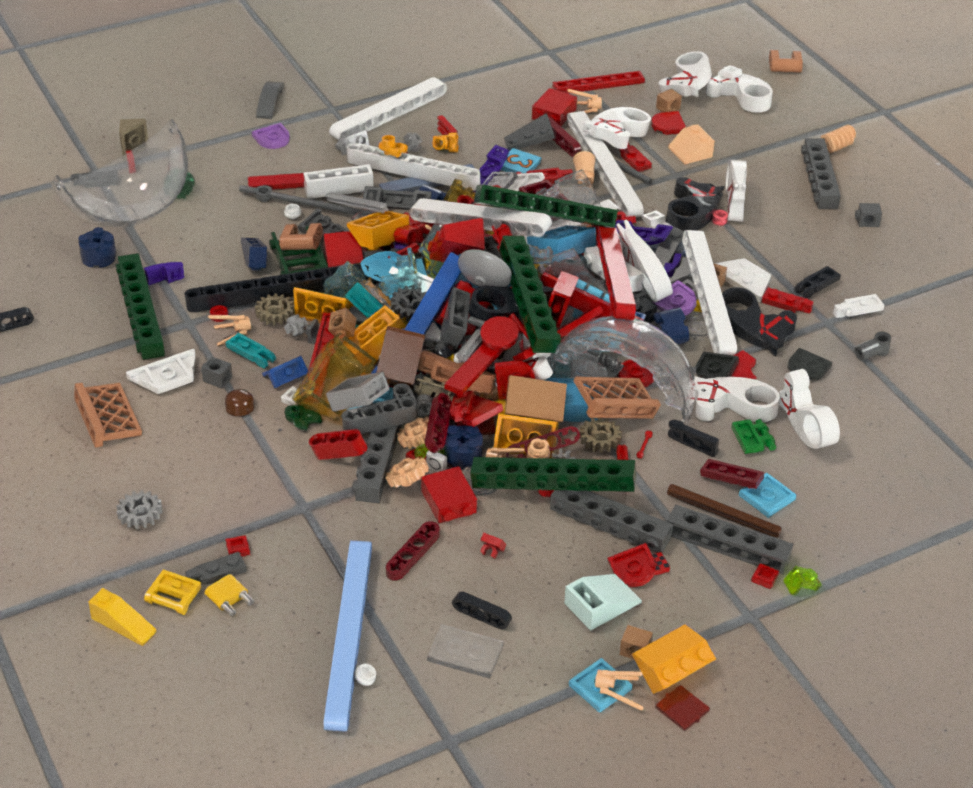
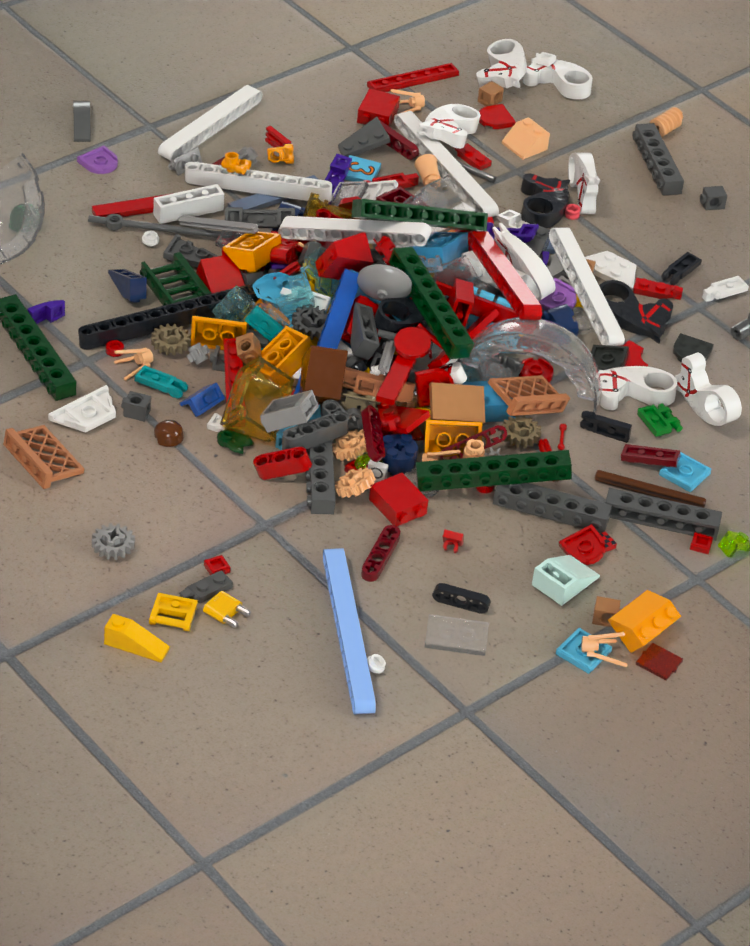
camera: 15 degrees left, 0 degrees up
(293, 241) = (178, 269): nougat connector -> none
(785, 64) = (601, 46): nougat connector -> none

